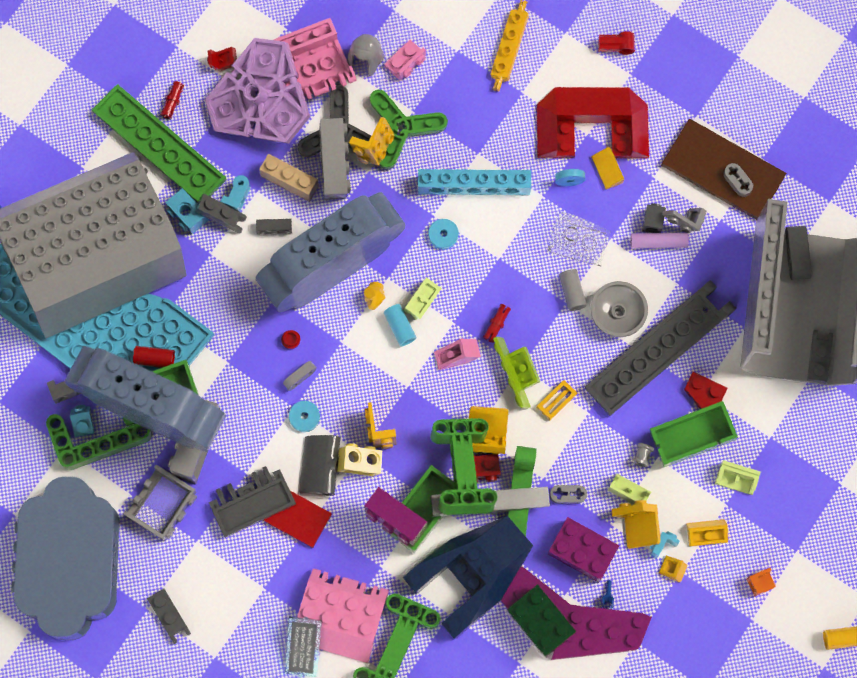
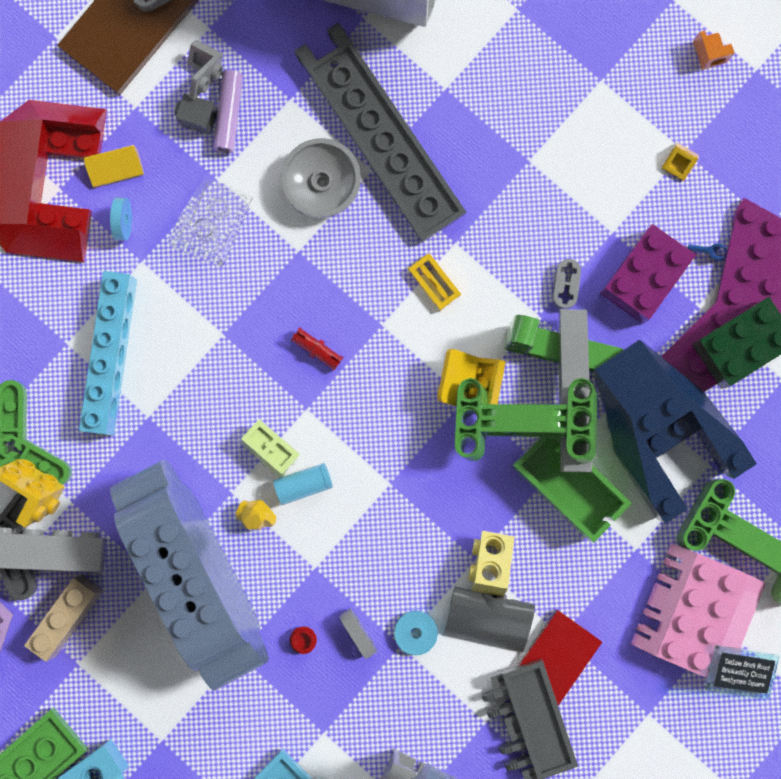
camera: 75 degrees left, 10 degrees up
(220, 213) = (103, 725): dark grey hinge -> none
(238, 193) = (80, 695): medium azure leg -> none
(274, 226) = (134, 646): dark grey piece -> none
(384, 438) = (468, 524): yellow bracket -> none
(395, 517) = (593, 525): magenta brick -> none
(447, 226) = (167, 400): medium azure piece -> none
(457, 353) = (354, 409): bright pink slope -> none
(487, 467) = (518, 388): red bracket -> none
(519, 370) = (386, 327): lime bracket -> none
(572, 290) = (283, 238): light grey pin -> none
(628, 490) = (571, 201): yellowish green hinge -> none
(640, 523) = (623, 193): yellow bracket -> none
(642, 455) = (525, 177): light grey bush -> none
(664, 537) = (649, 173): medium azure bracket -> none
(693, 434) = (509, 102): bright green piece -> none
(704, 391) = (450, 83): red wing -> none
(707, 532) = (636, 109): yellow slope -> none
(737, 477) = (570, 57): yellowish green hinge -> none

